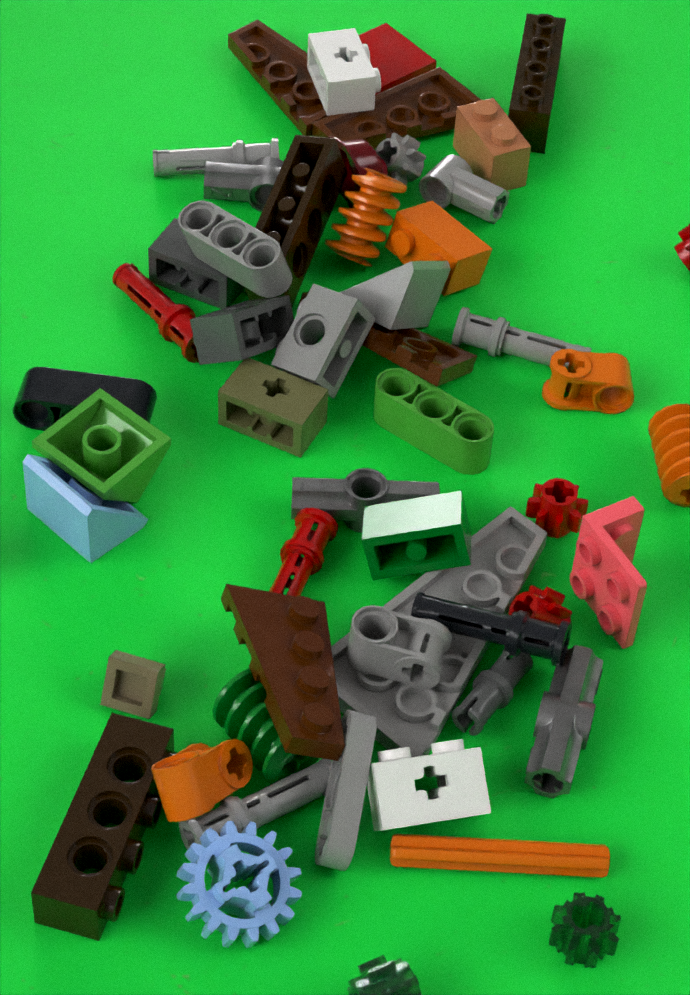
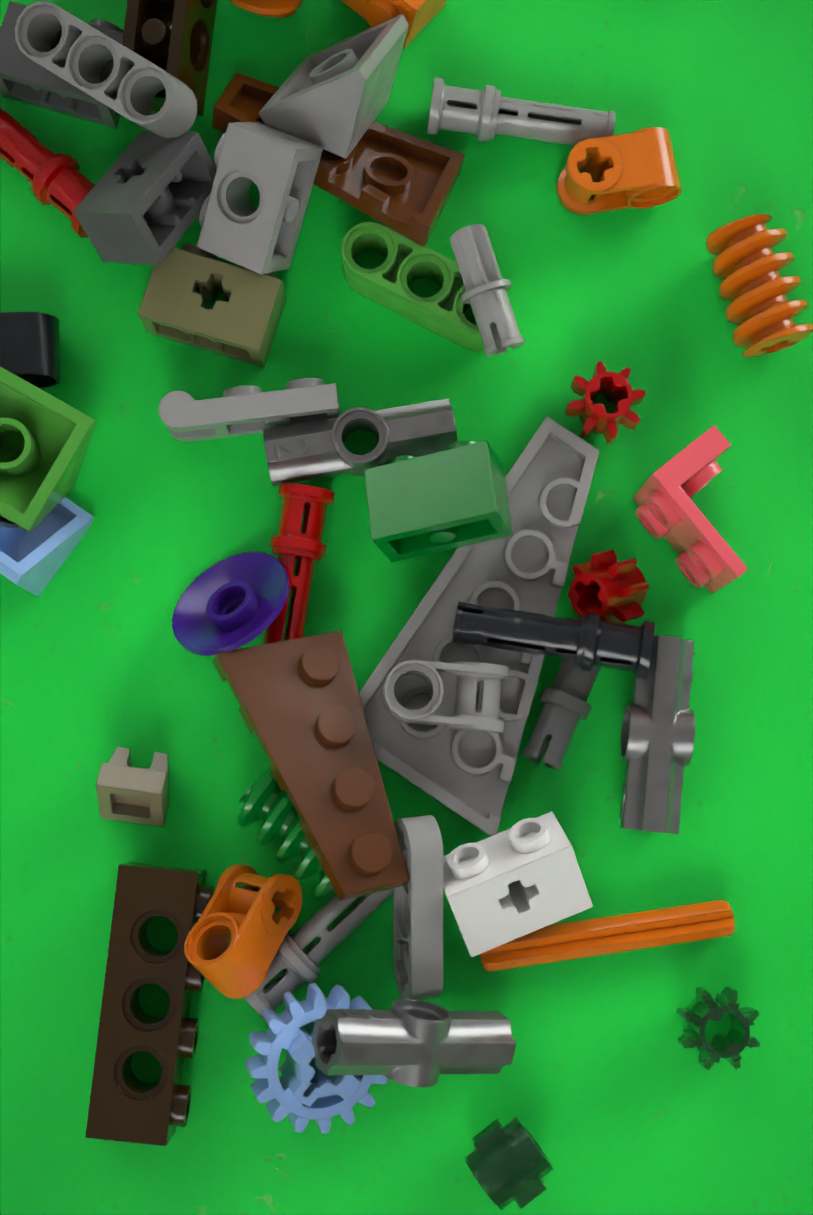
camera: 10 degrees left, 35 degrees up
(247, 573) = (230, 603): none -> dark purple dish
(272, 468) = (247, 410): none -> light grey plate
(324, 868) = (412, 1042): none -> flat silver piece
(478, 411) = (486, 290): none -> light grey axle

